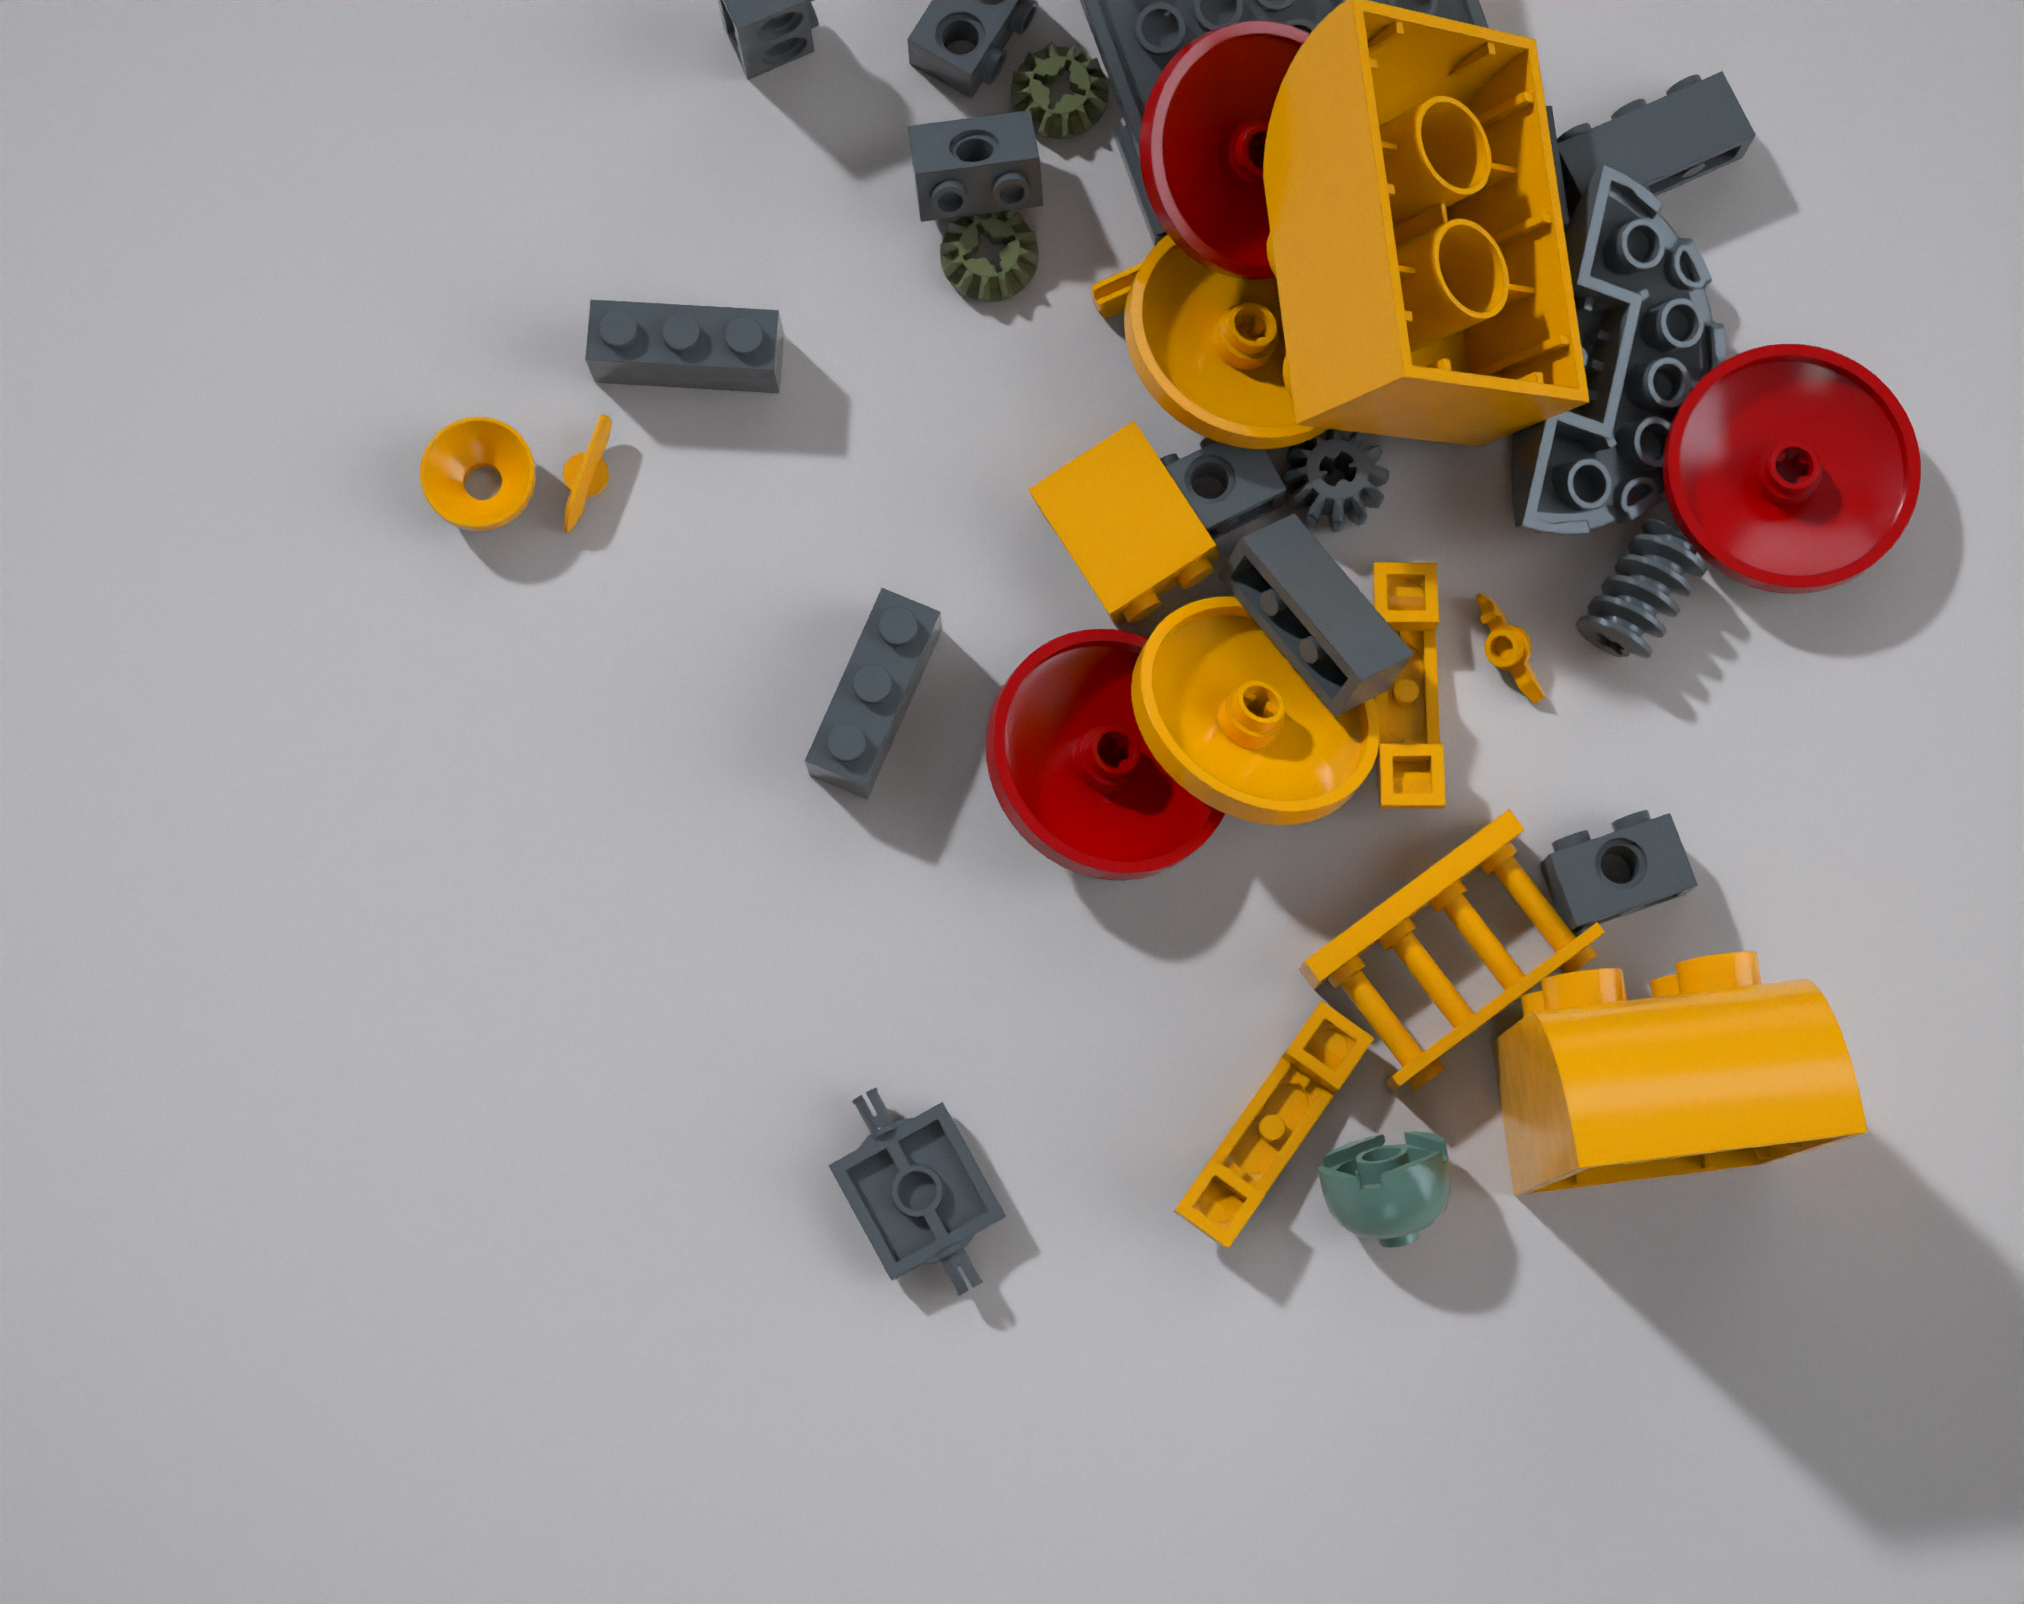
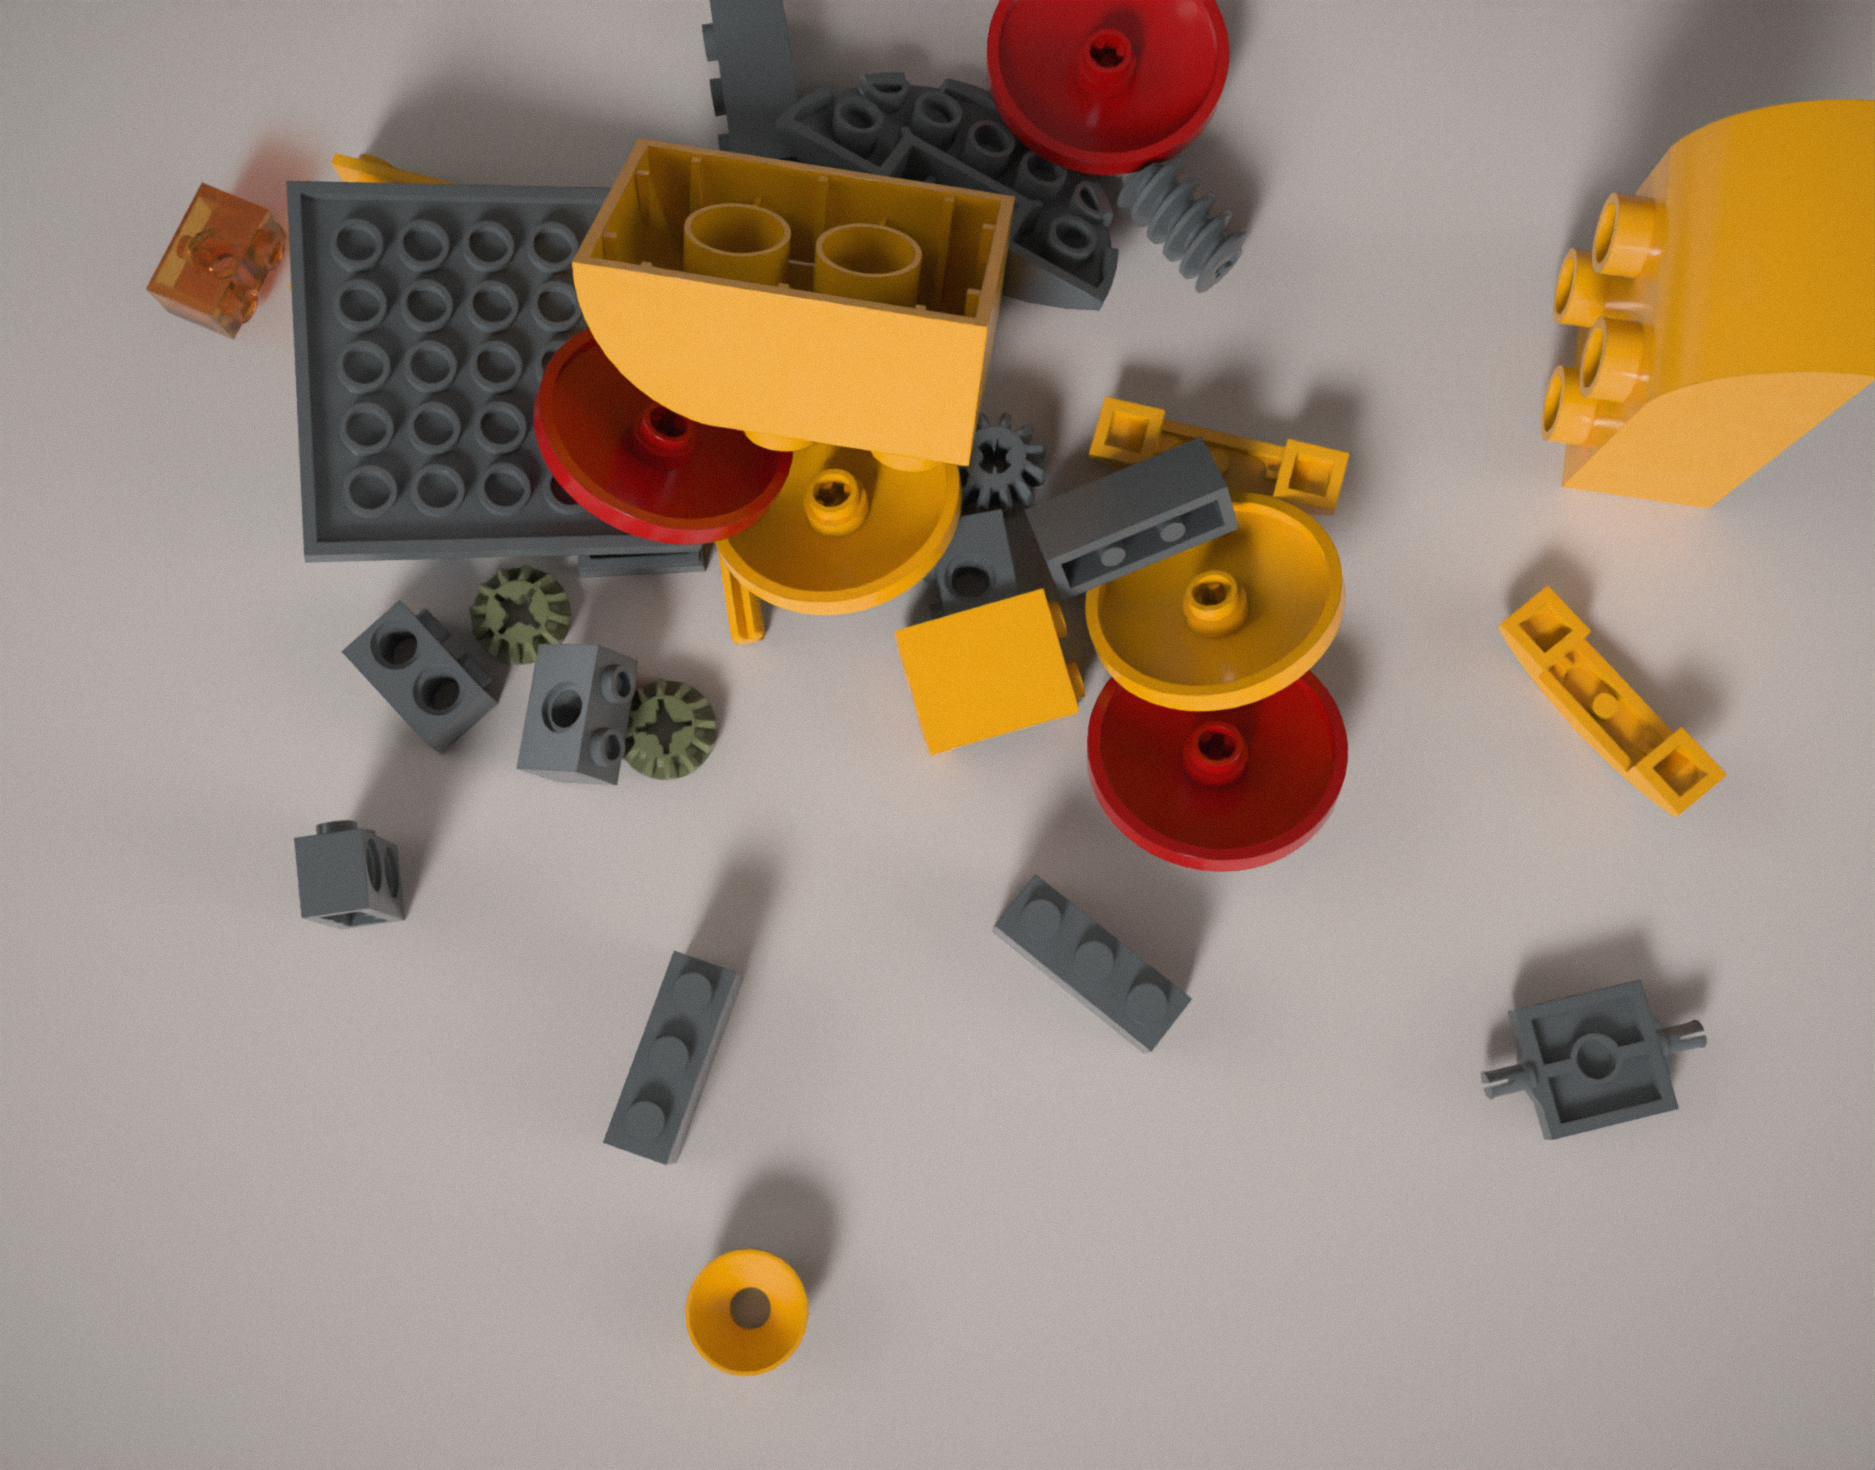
camera: 75 degrees left, 0 degrees up
(586, 473) = (773, 1196): light orange piece -> none
(1387, 1188) = (1690, 611): sand green cylinder -> none
(1444, 891) = (1441, 540): light orange fence -> none
(1509, 648) = (1198, 359): light orange piece -> none
(1655, 863) = (1454, 292): dark grey brick -> none

